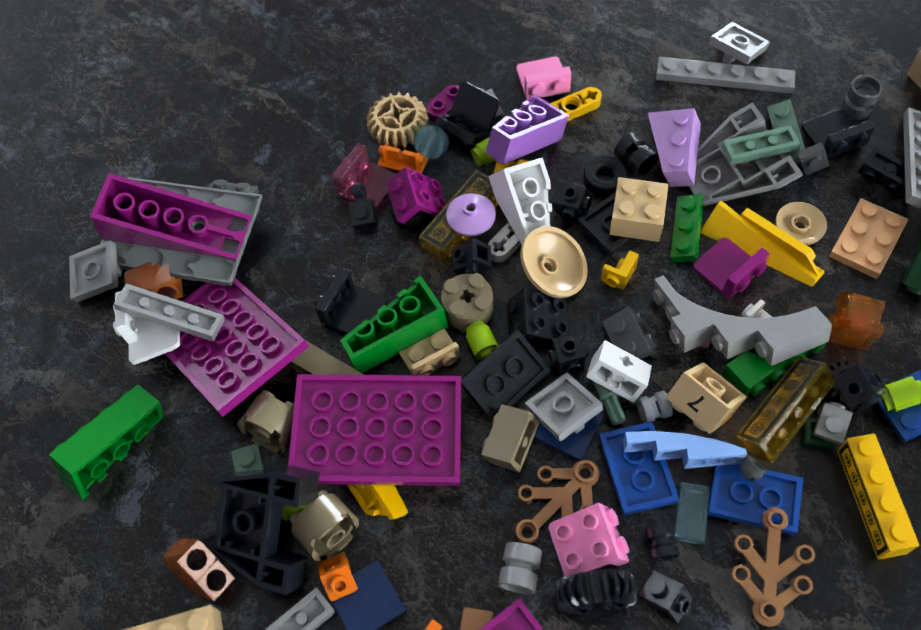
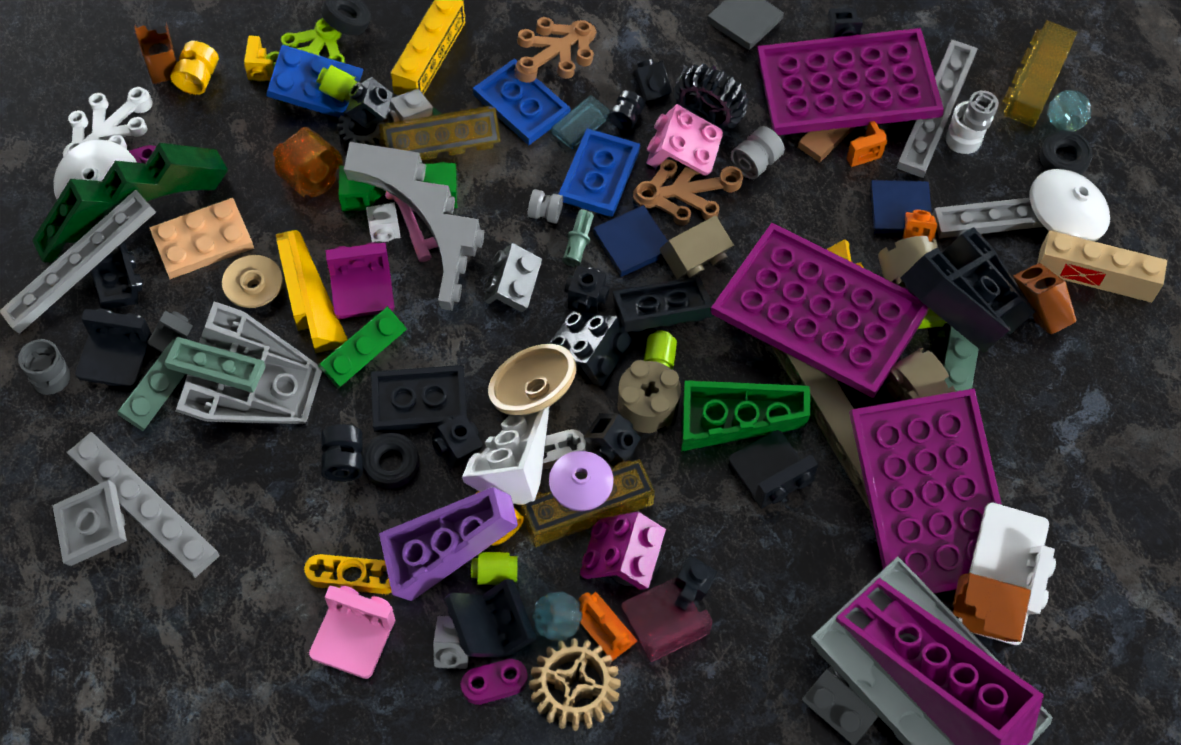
camera: 155 degrees left, 0 degrees up
(93, 271) = (1065, 689): light grey hinge -> none
(104, 440) = (1098, 466): green wedge -> none
(169, 312) = (986, 538): light grey plate -> none
(430, 354) = (718, 366): tan bracket -> none
(564, 406) = (630, 239): light grey hinge -> none
(619, 371) = (555, 241): white brick -> none
(620, 275) = (465, 337): yellow bracket -> none
(639, 209) = (403, 373): tan brick -> none
(677, 144) = (290, 432): lavender wedge -> none
(693, 449) = (548, 143): light blue slope -> none
(705, 397) = (499, 174): tan brick -> none
(752, 469) = (511, 106): dark grey hinge -> none

